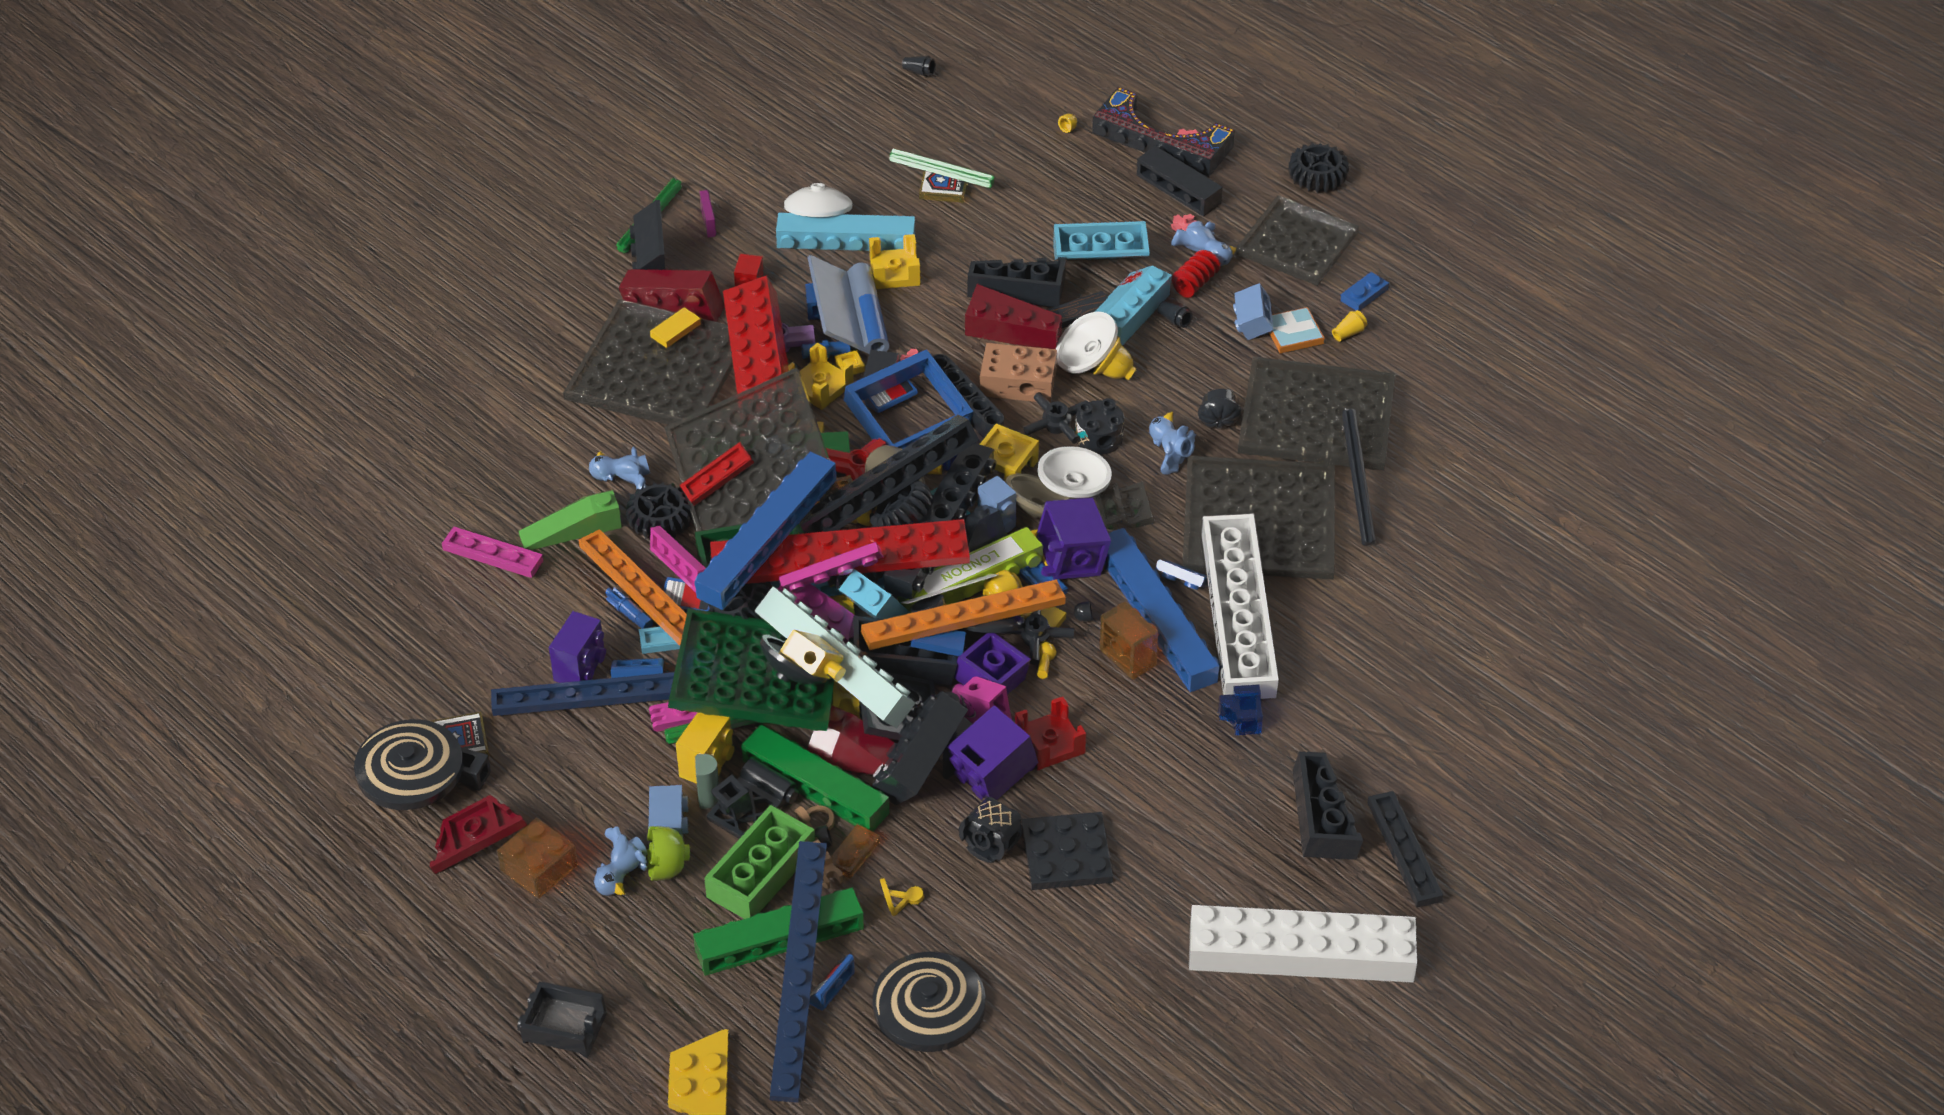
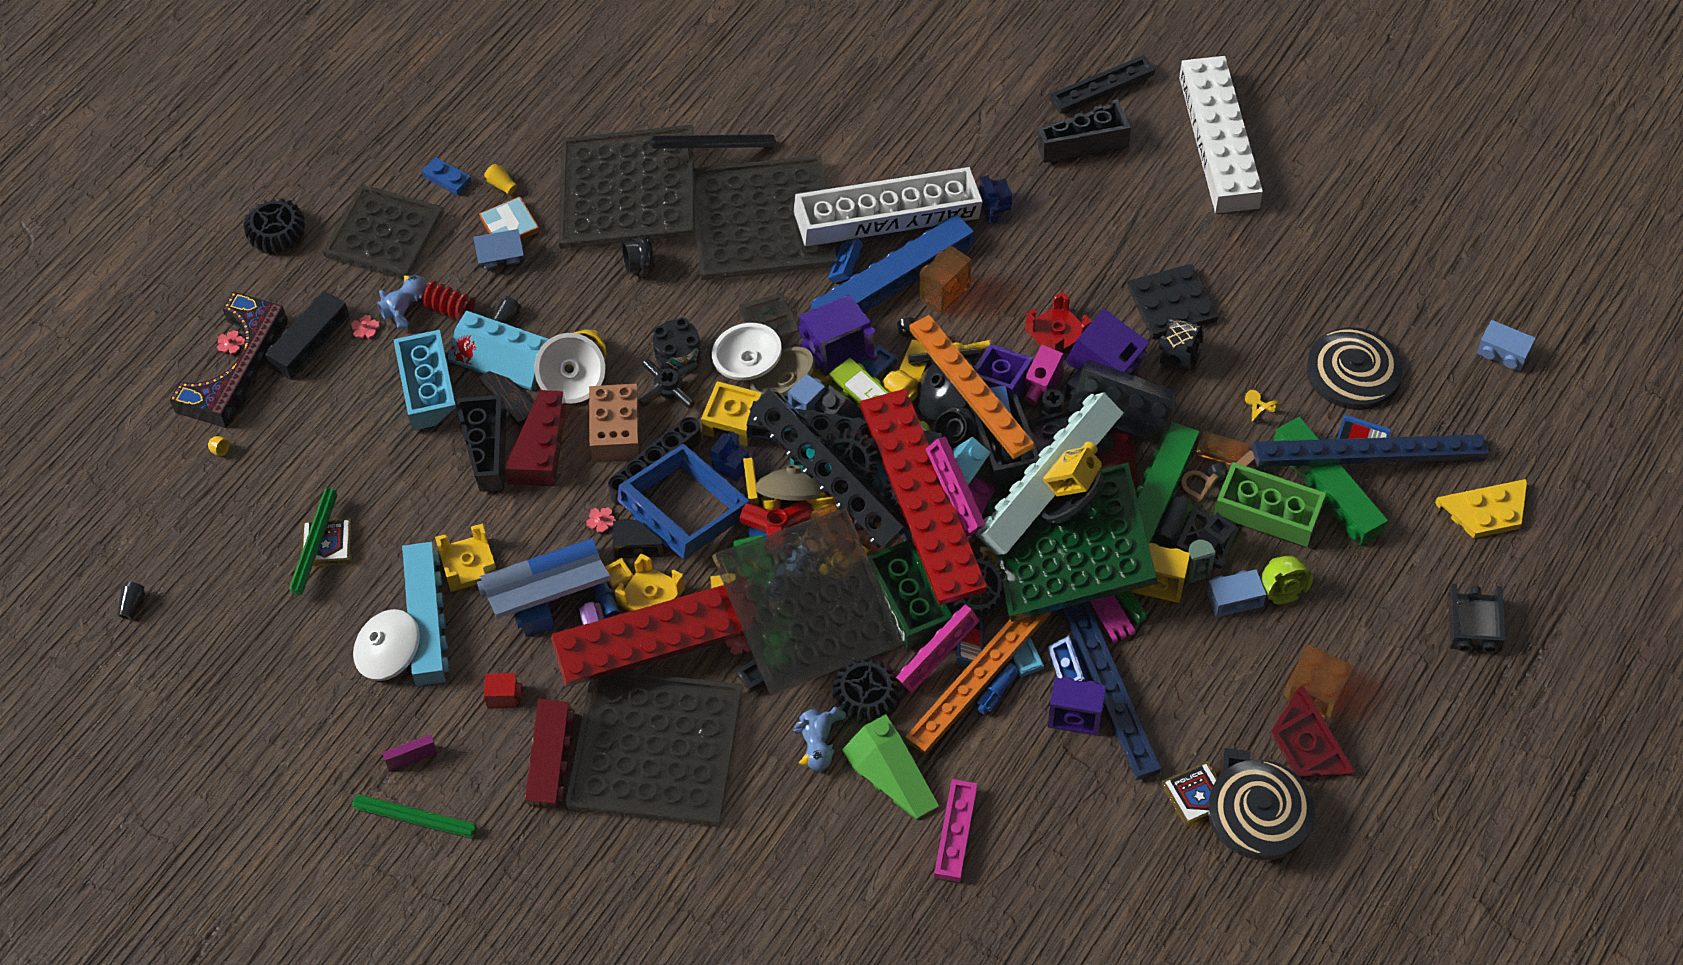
camera: 100 degrees left, 10 degrees up
(624, 858) = (1295, 612): medium blue animal -> none
(648, 238) = (483, 785): black slope -> none
(675, 327) = (606, 734): yellow tile -> none
(717, 473) = (830, 629): red tile -> none
(765, 530) = (928, 543): blue brick -> none
(948, 589) = (928, 415): white sticker -> none
(1175, 442) = (687, 284): medium blue animal -> none

